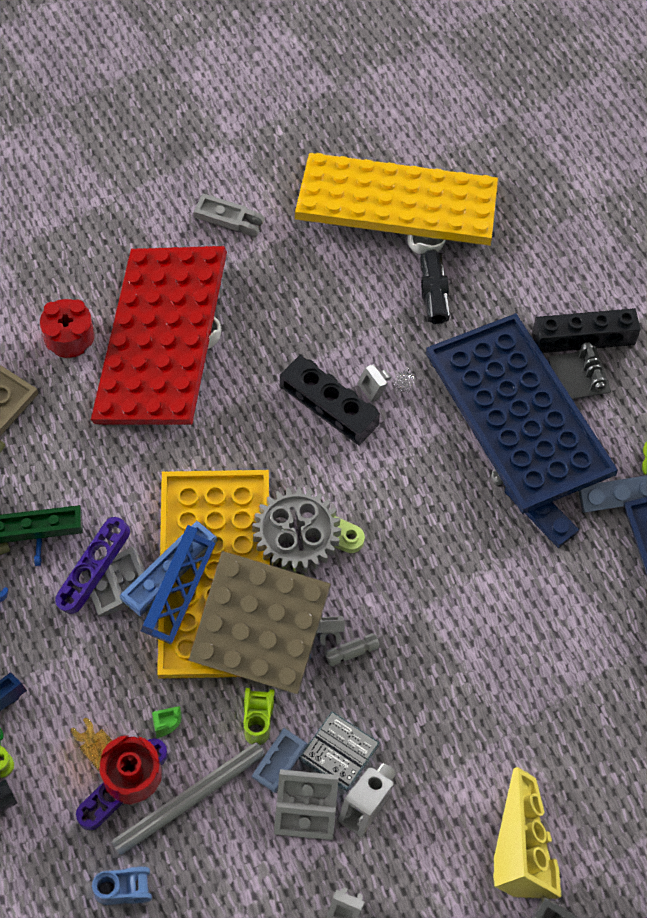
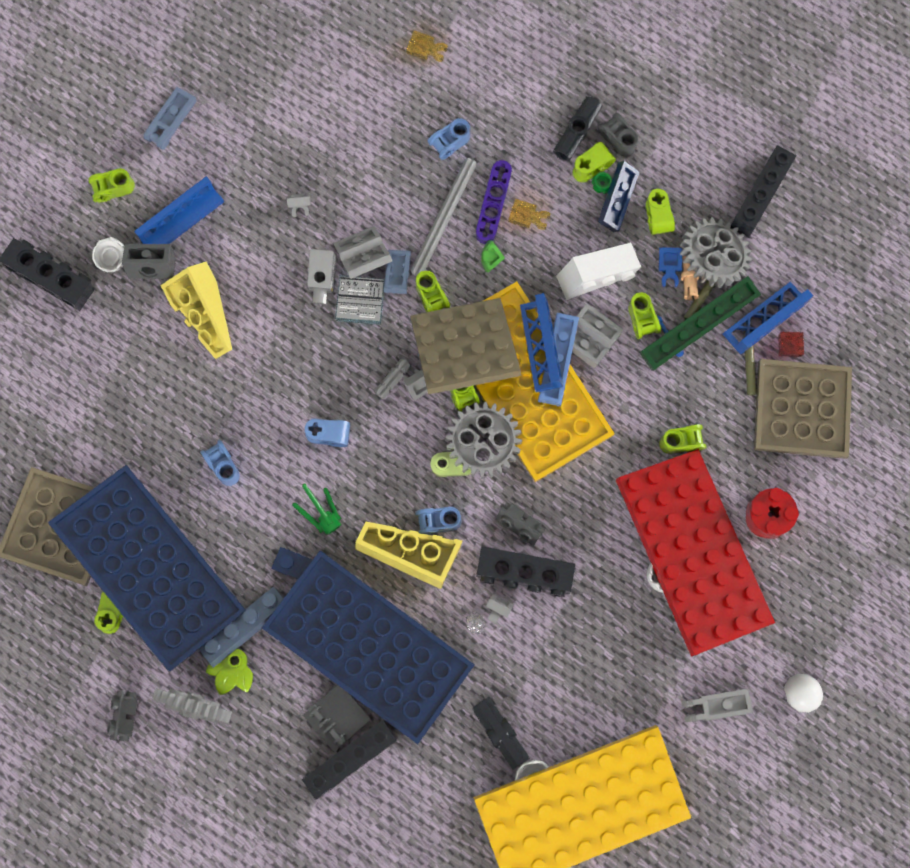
camera: 150 degrees right, 15 degrees up
(52, 564) = (643, 320): none -> lime piece
(63, 634) = (598, 270): none -> white wedge
(95, 433) = (687, 439): none -> lime piece
(97, 567) = (617, 332): dark purple beam -> none
(138, 754) = (485, 212): red brick -> none
(147, 190) = (803, 693): none -> white hair
(313, 451) = (527, 530): none -> dark grey hinge
(388, 485) = (436, 520): none -> medium blue piece
(431, 467) = (409, 551): none -> light yellow wedge
(449, 625) = (331, 432): none -> medium blue piece
(499, 544) = (328, 521): none -> green plant
(583, 661) = (219, 460): none -> medium blue piece

